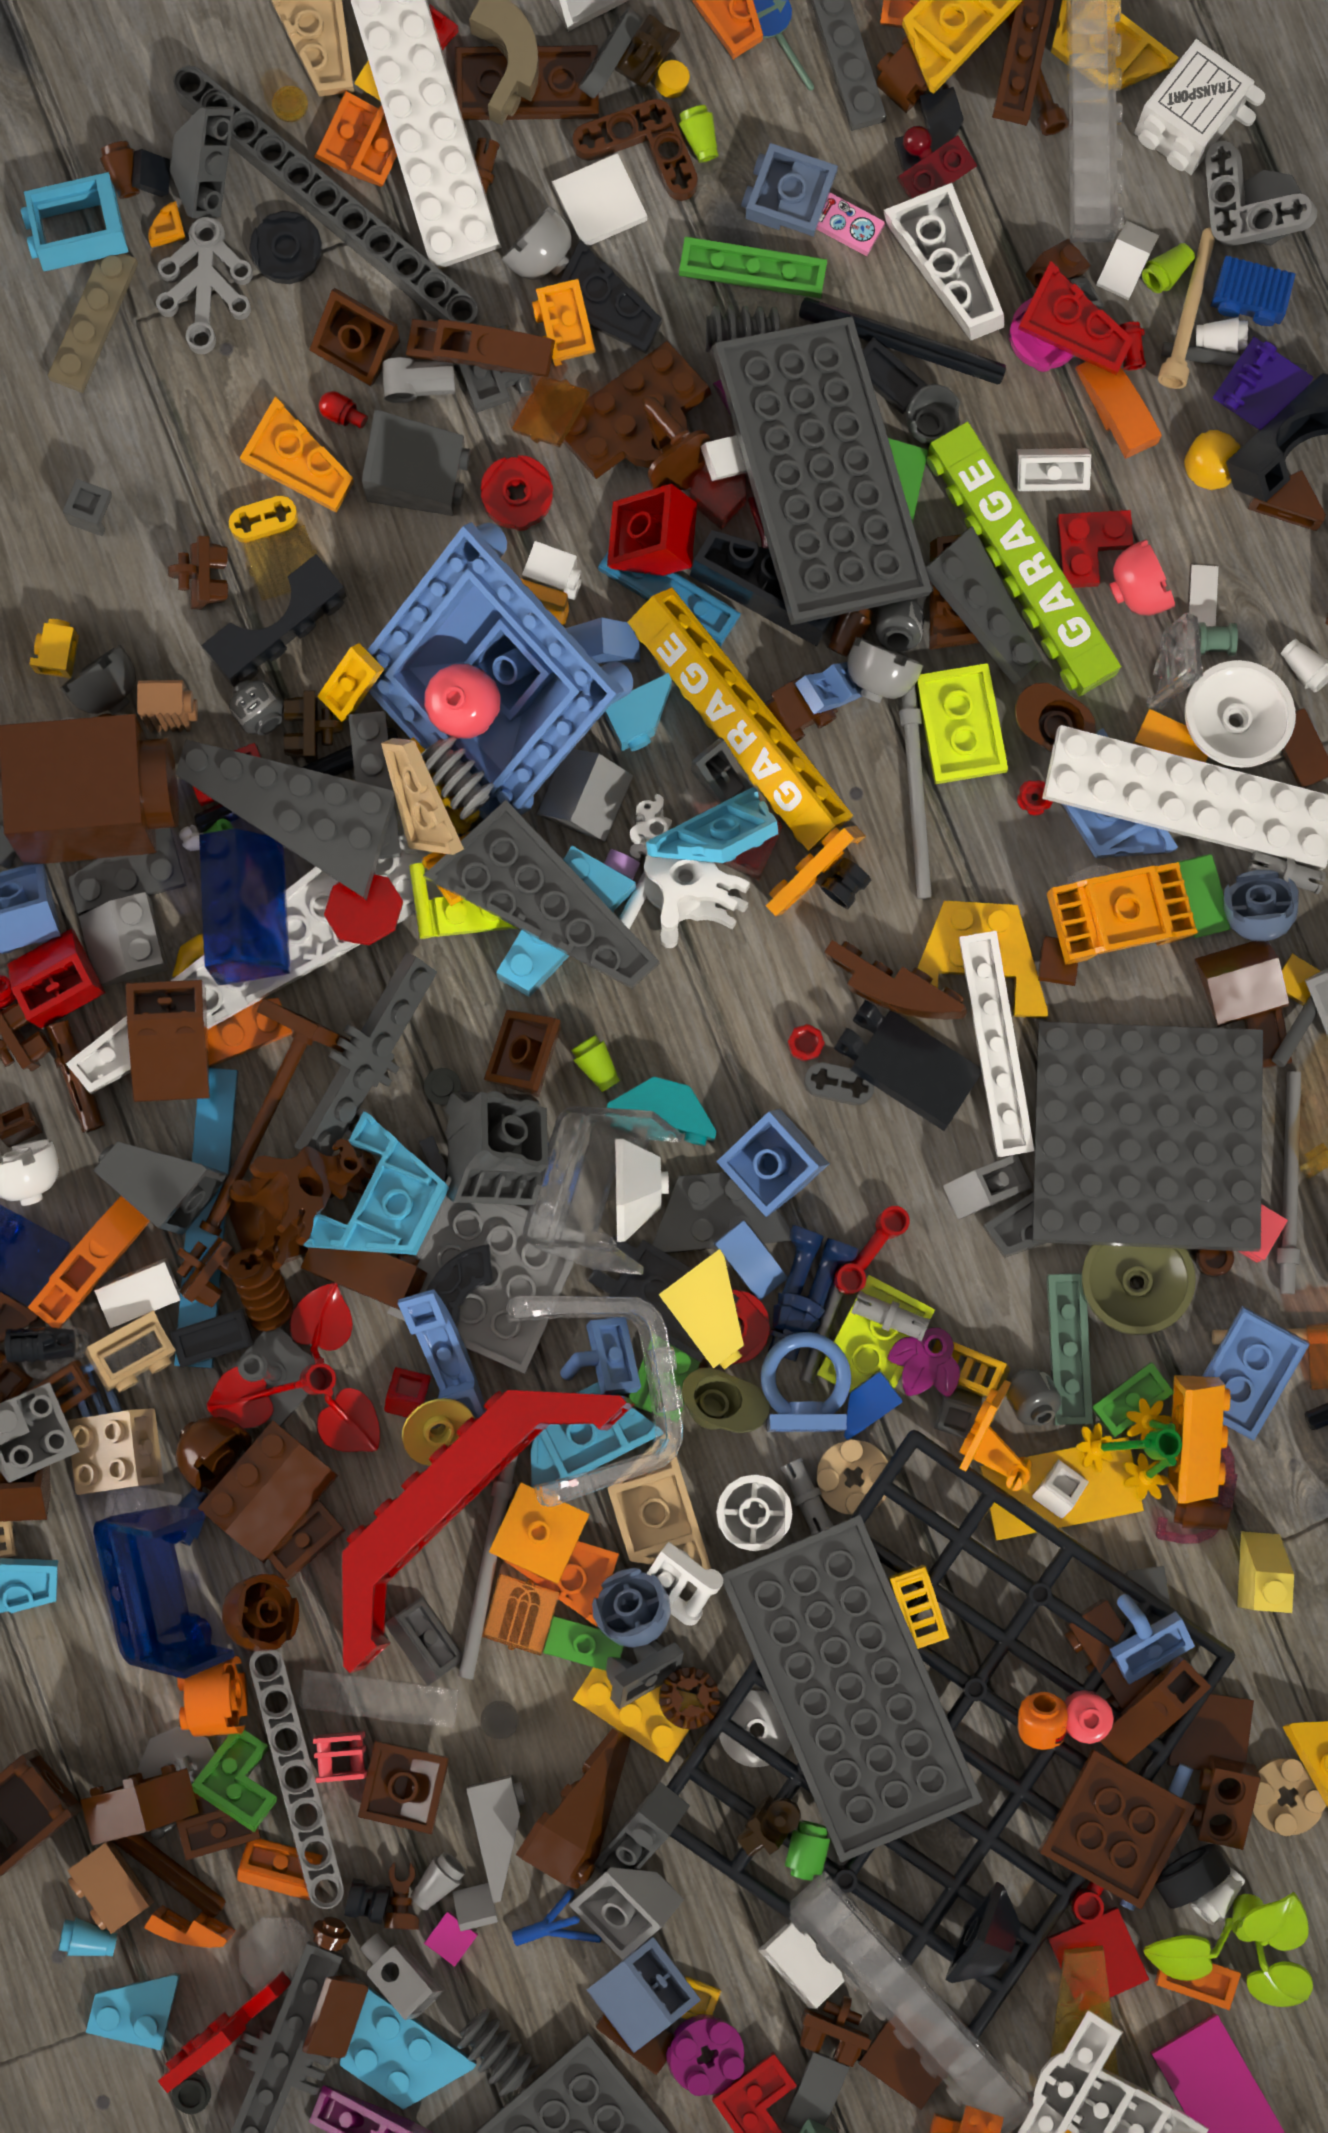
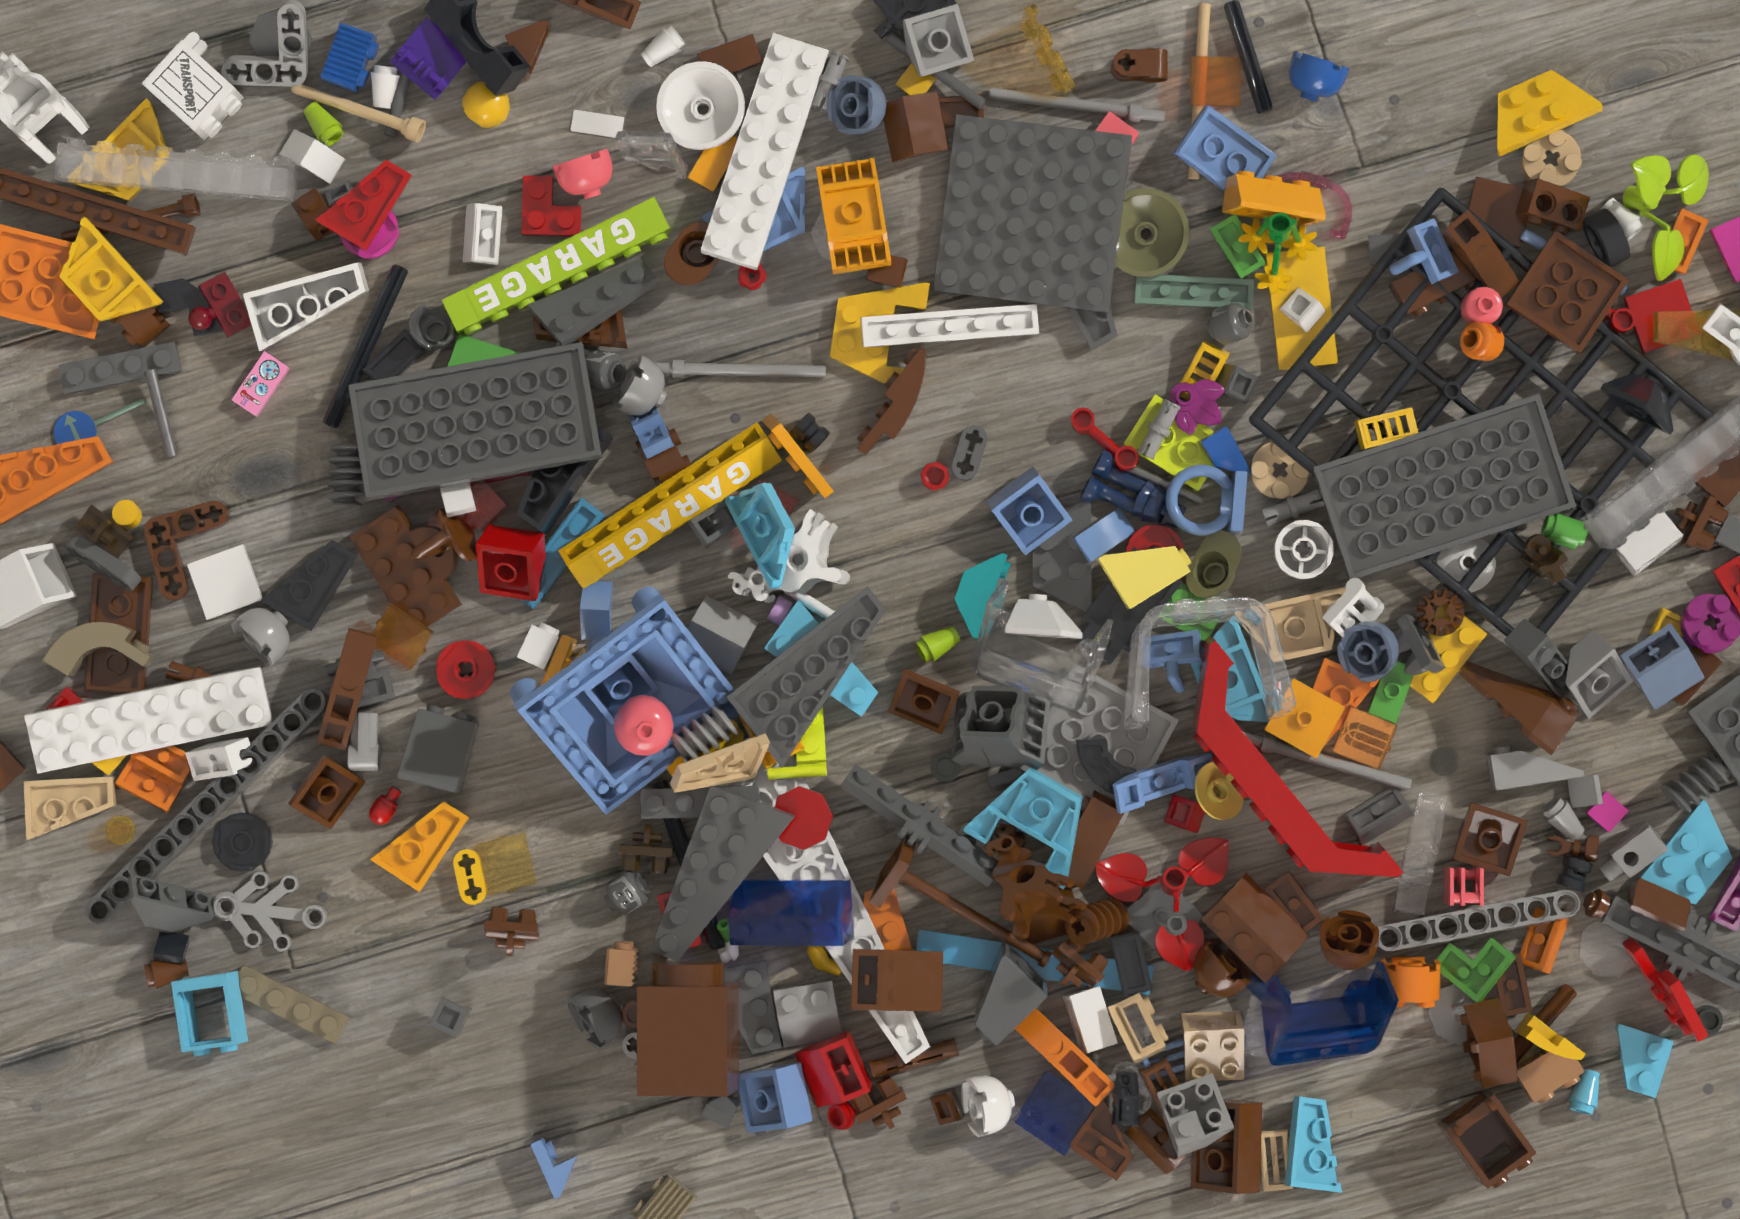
camera: 75 degrees left, 5 degrees up
(55, 649) = (564, 1051): yellow brick -> none
(149, 1879) = (1546, 1038): none -> yellow slope
(166, 226) = (216, 938): light orange tile -> none
(201, 1932) = (1589, 1002): orange slope -> none
(241, 651) = (579, 903): black arch -> none
(350, 682) = (616, 814): yellow plate -> none
(382, 203) = (218, 759): none -> white hinge
(549, 1928) = (1606, 729): blue plant -> none
(564, 320) = (328, 619): light orange bracket -> none
(638, 714) = (663, 581): medium azure slope -> none
(699, 131) = (175, 495): lime cone -> none
(752, 267) = (293, 462): bright green plate -> none
(789, 190) = (232, 426): sand blue plate -> none
(798, 107) = (160, 413): none -> flat silver bar
(847, 628) = (605, 412): reddish brown cone -> none
(909, 1065) = (960, 395): black tile -> none
(961, 723) = (687, 328): neon yellow plate -> none
(987, 1186) = (1061, 343): light grey slope -> none
(989, 1449) = (1269, 361): light orange plate -> none
(1120, 408) = (439, 175): orange slope -> none
(1135, 357) = (376, 158): red pin -> none
(1202, 1515) = (1332, 200): reddish brown cone -> none
(1204, 895) = (842, 149): bright green slope -> none
(1214, 1262) = (1136, 171): reddish brown tile -> none
(1218, 638) = (635, 116): sand green bush -> none
(1264, 1574) = (1382, 158): light yellow slope -> none

